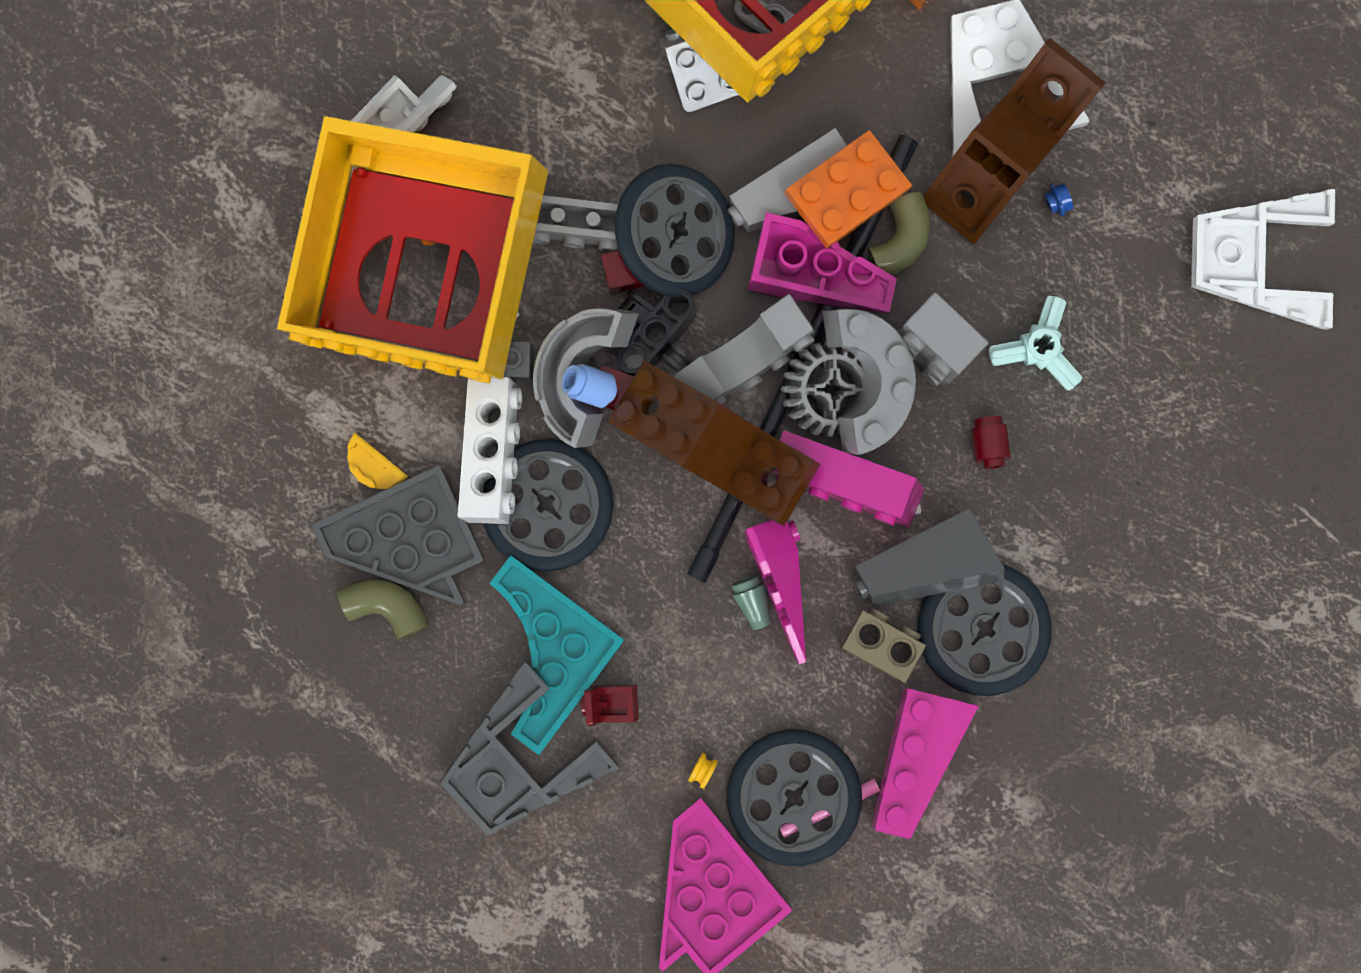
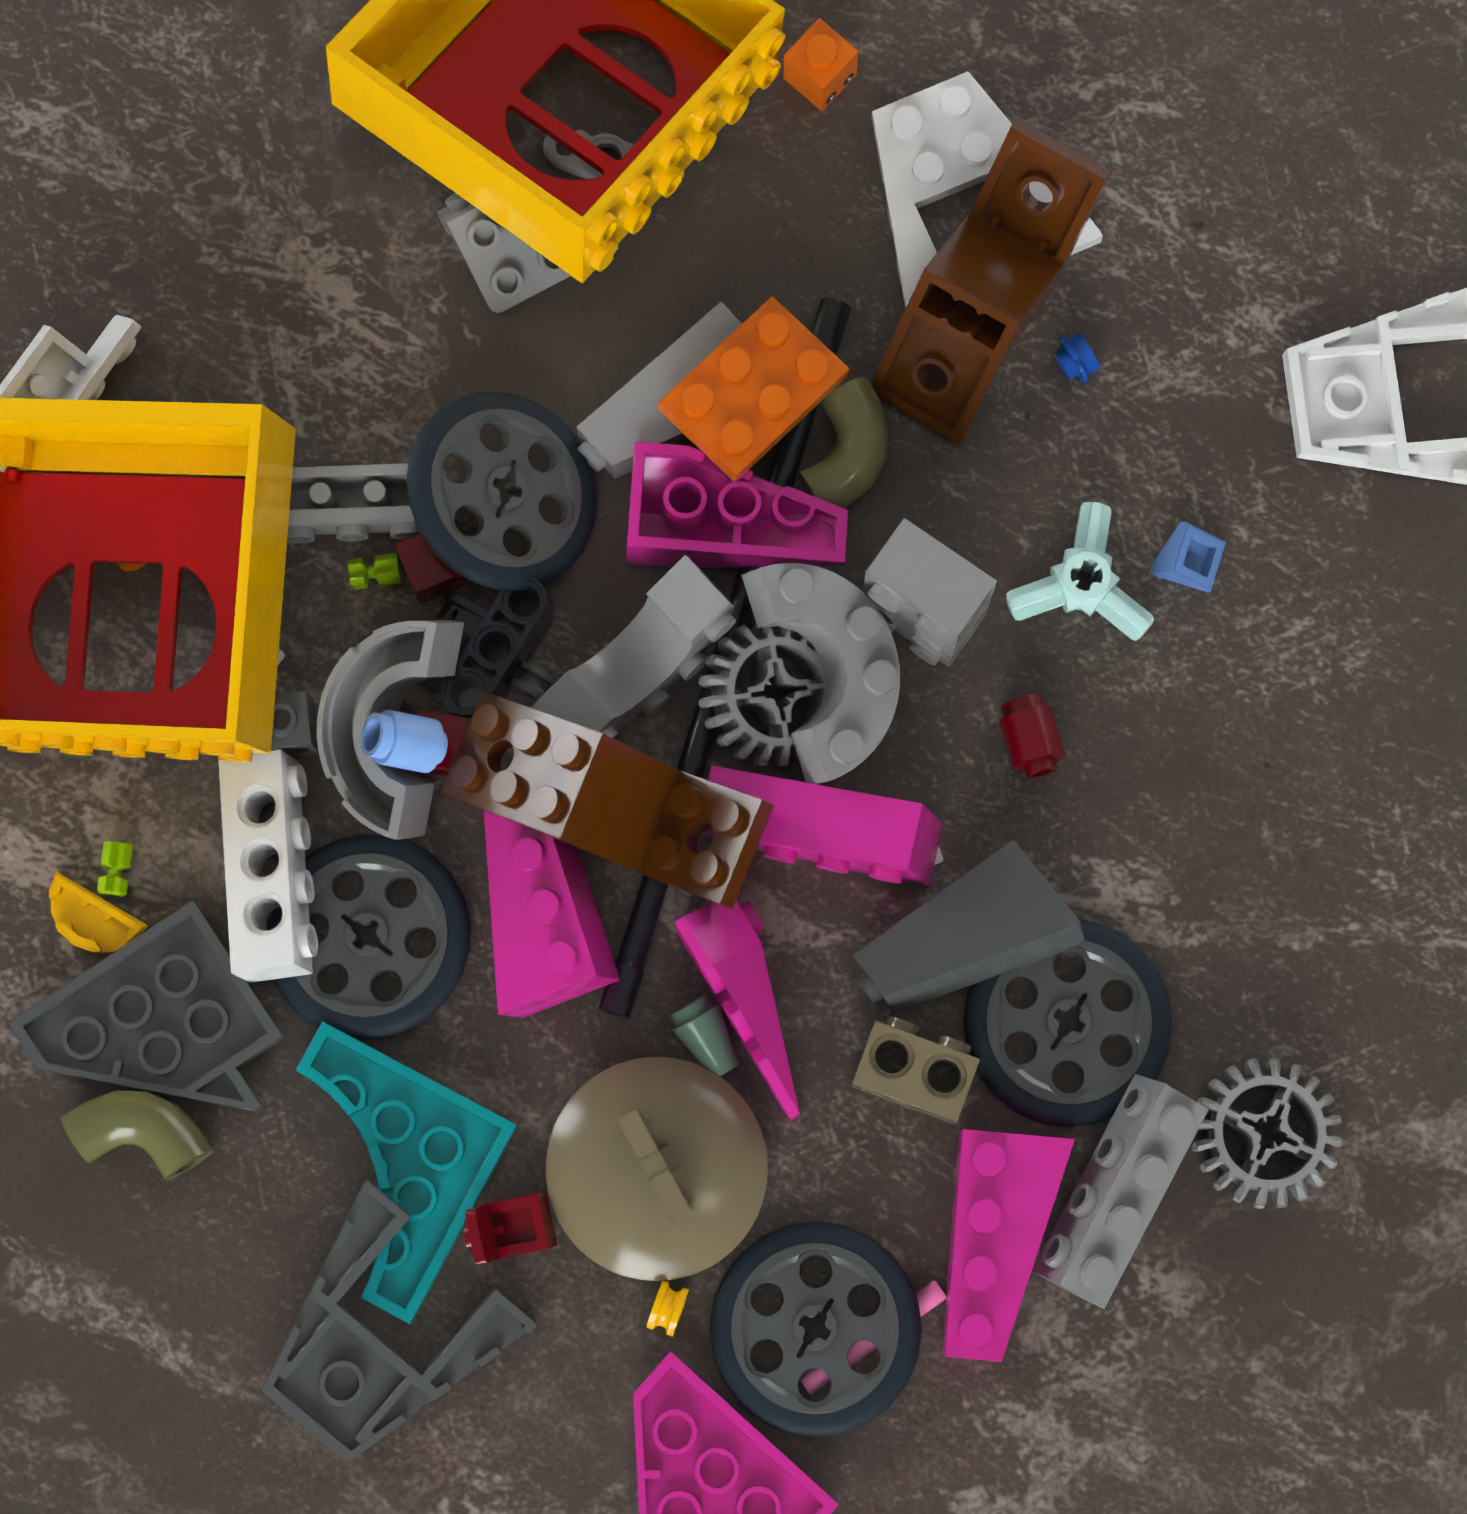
camera: 10 degrees left, 5 degrees down
(393, 430) = (116, 858): none -> lime piece
(591, 269) = (385, 570): none -> lime piece
(660, 513) = (542, 921): none -> dark pink wedge
(709, 681) = (656, 1168): none -> dark tan bracket
(1002, 741) = (1120, 1190): none -> light grey brick
(1110, 707) = (1292, 1144): none -> light grey gear
(1111, 341) = (1190, 558): none -> medium blue slope

